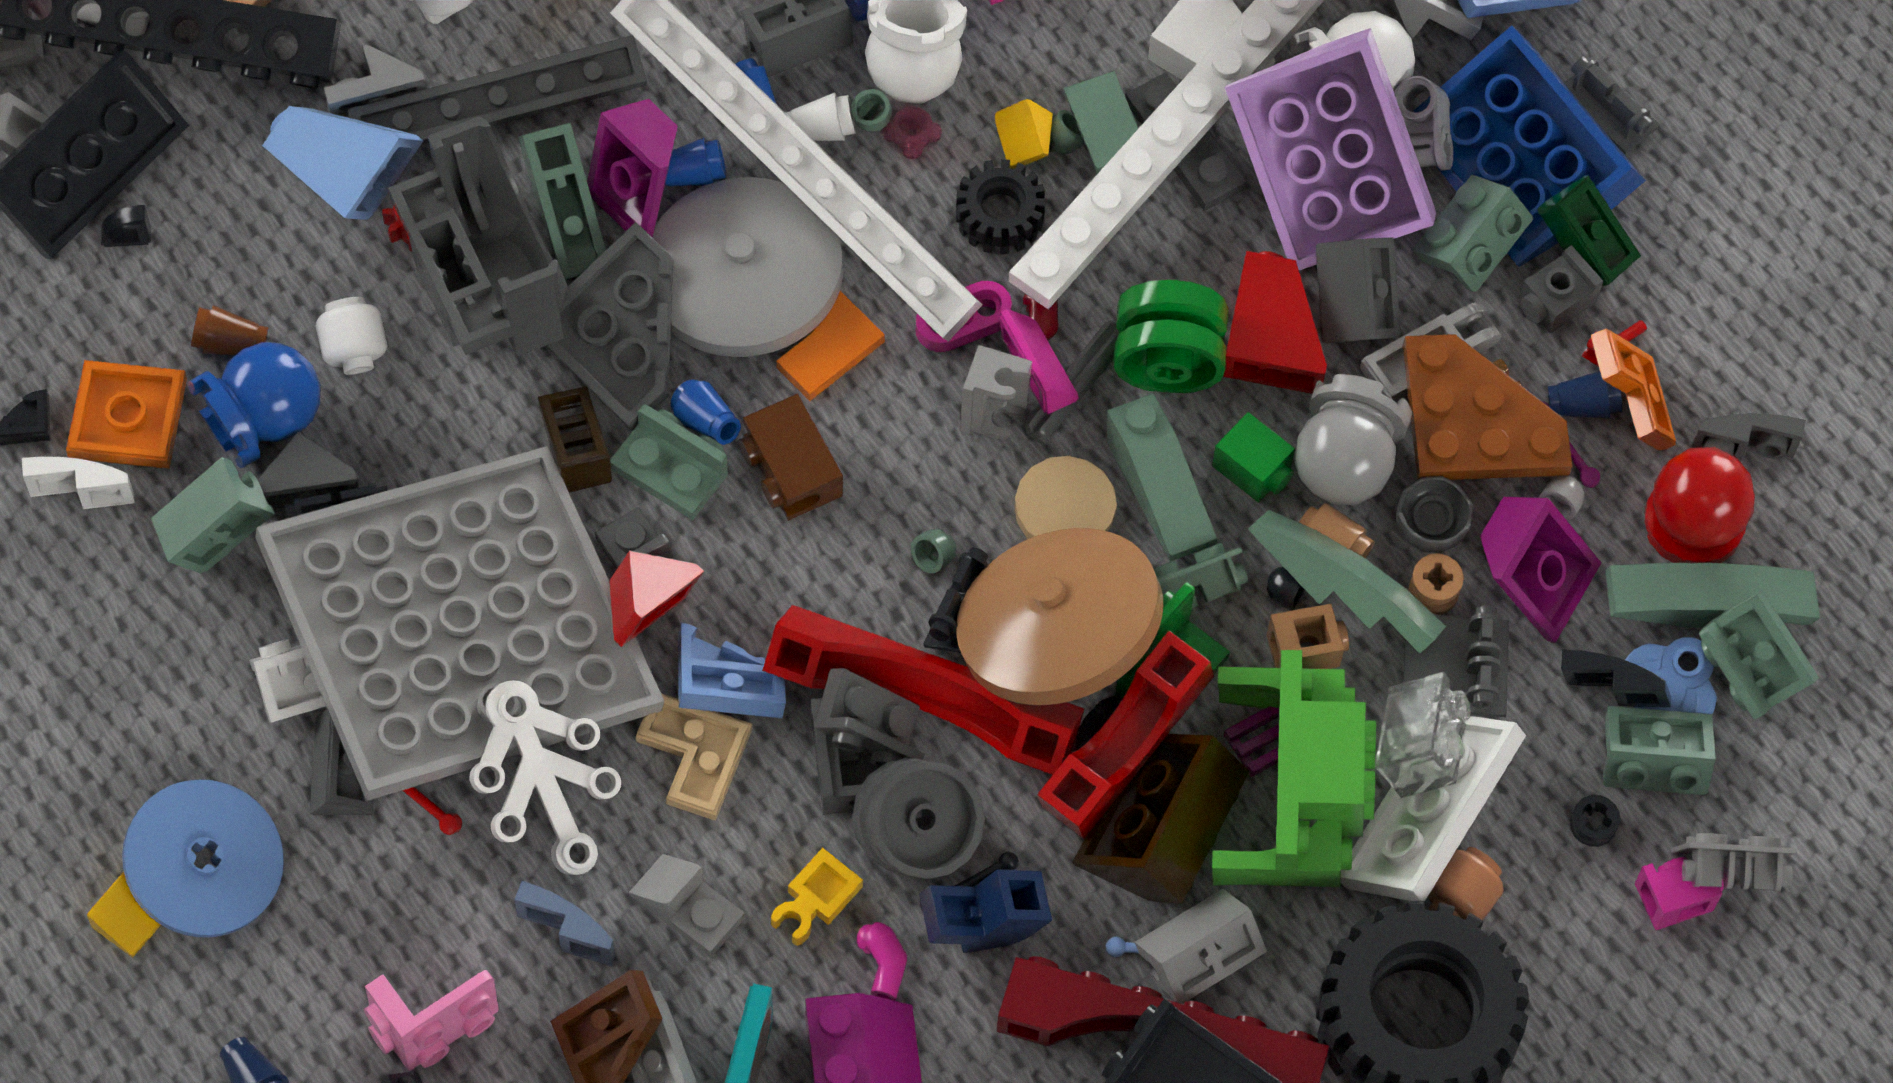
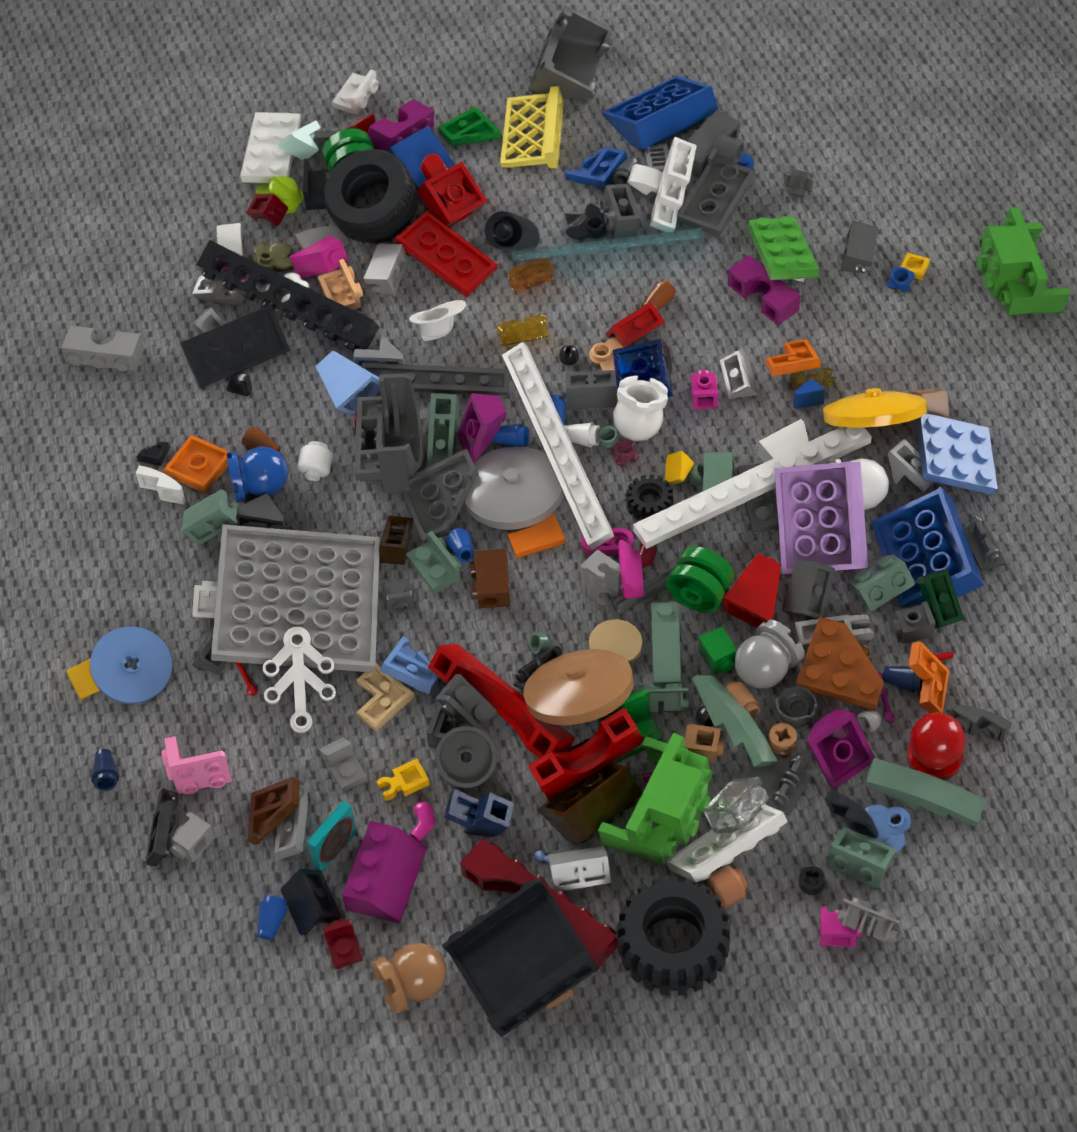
camera: 30 degrees right, 10 degrees down
(578, 931) = (281, 753): sand blue slope -> none
(646, 590) = (392, 615): slope -> none
(1429, 128) = (877, 525): light grey piece -> none
(1756, 655) = (931, 827): sand green bracket -> none

